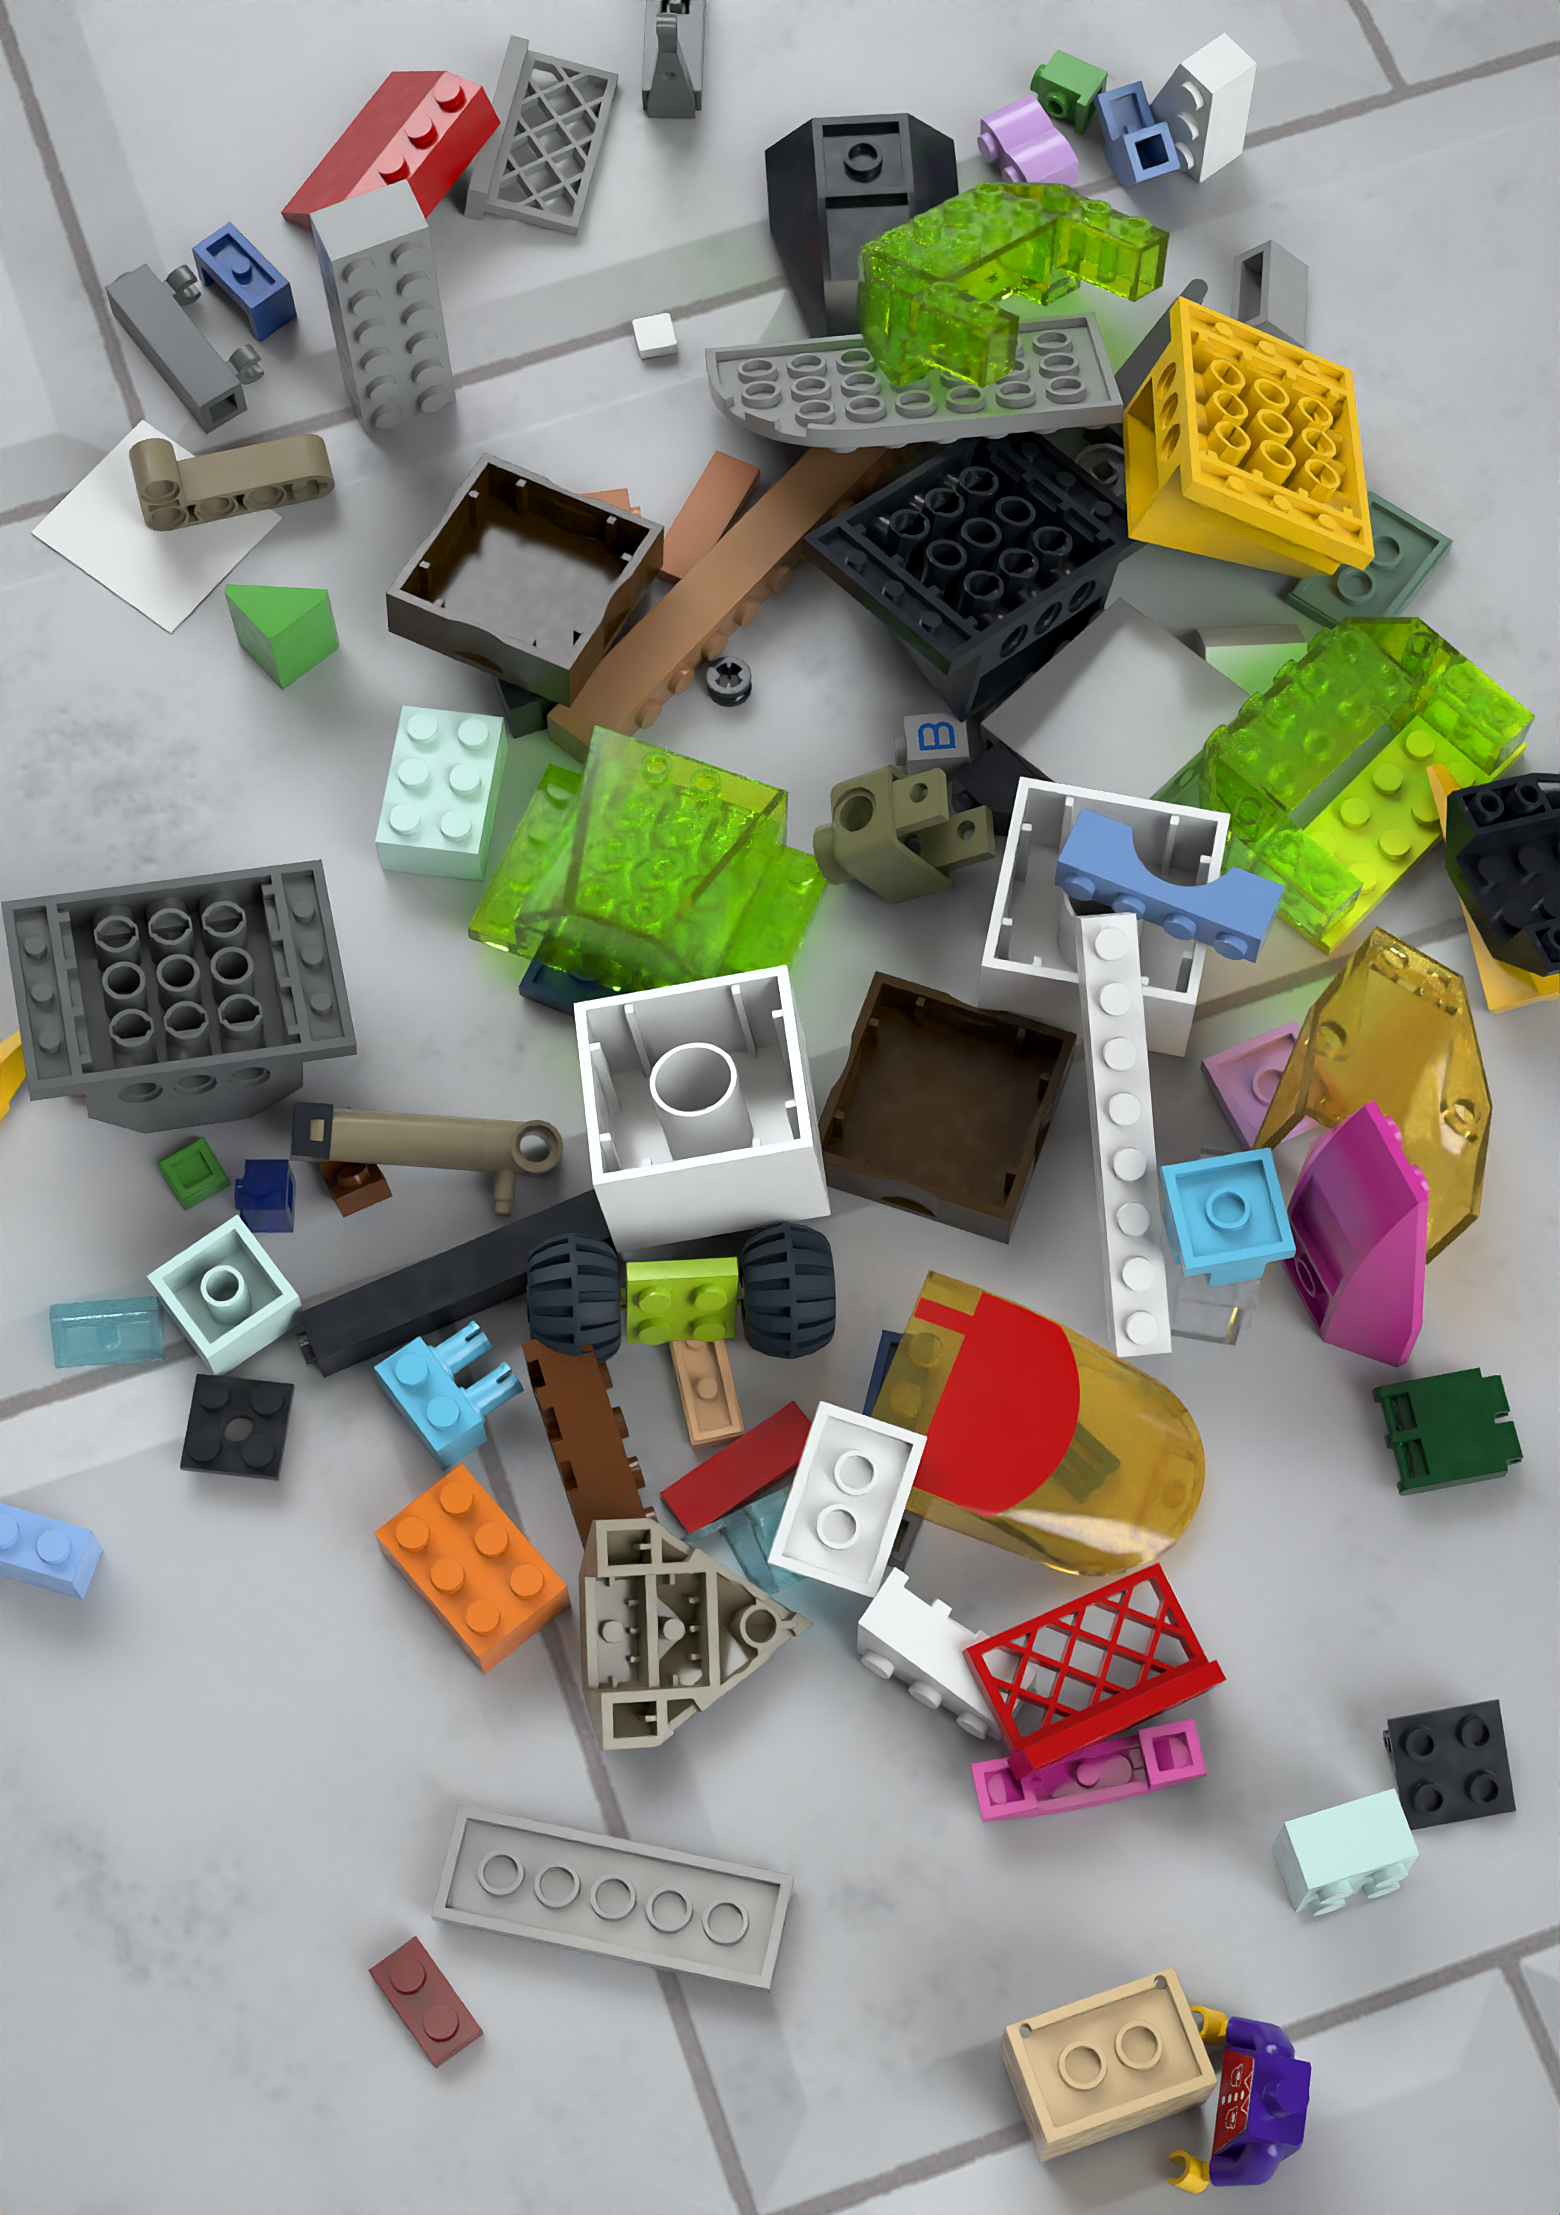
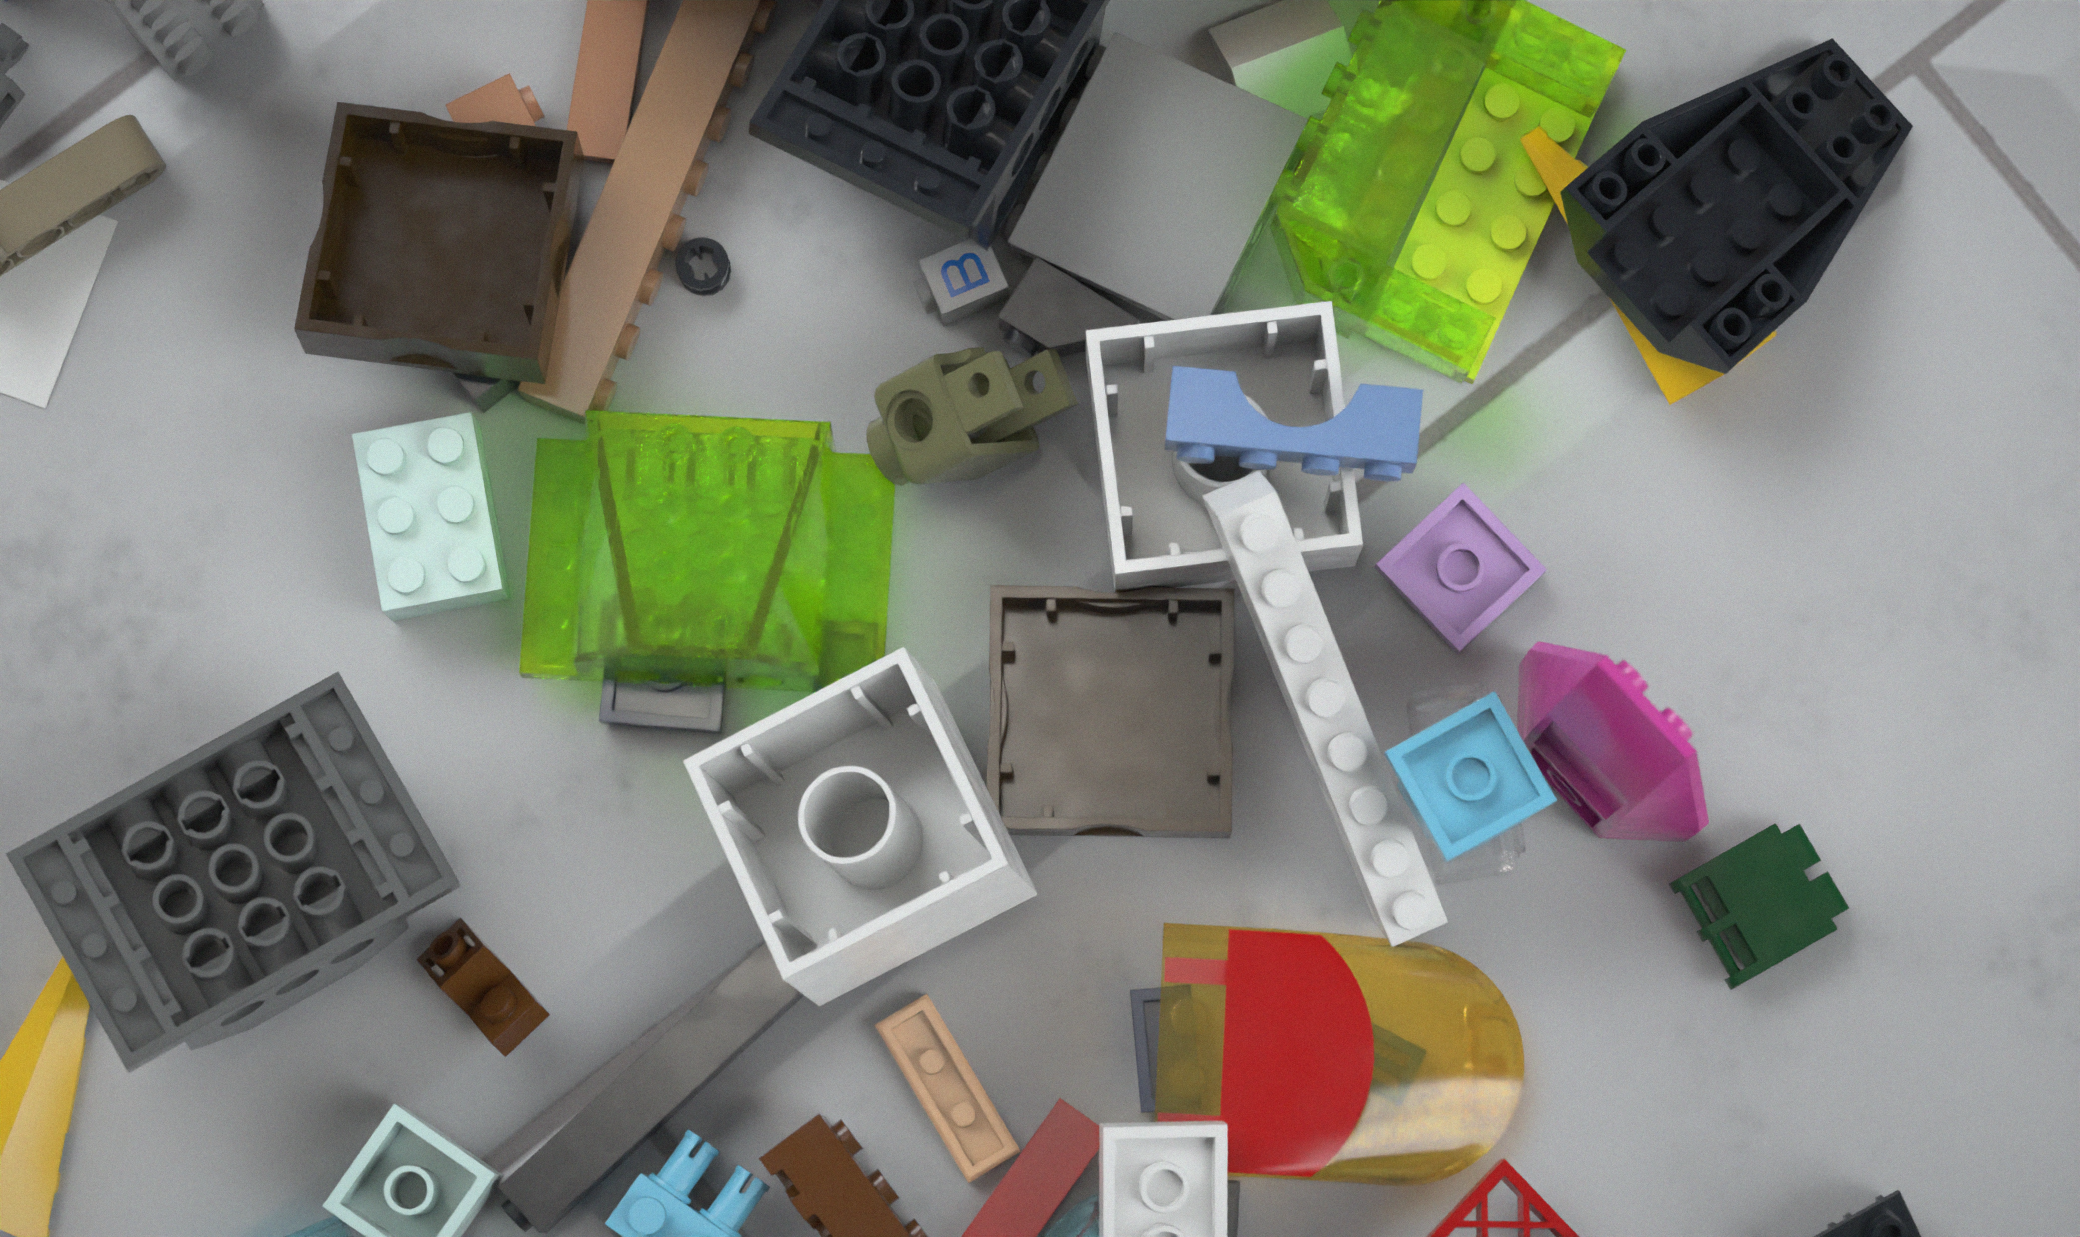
camera: 15 degrees left, 15 degrees up
(194, 1173) = (319, 1051): bright green tile -> none
(266, 1196) = (411, 1058): clear blue brick -> none
(283, 628) = (180, 379): bright green slope -> none
(424, 1141) = (563, 944): dark tan piece -> none
(782, 1294) = (1010, 990): black plate -> none
(1401, 1036) = (1595, 521): clear yellow windscreen -> none

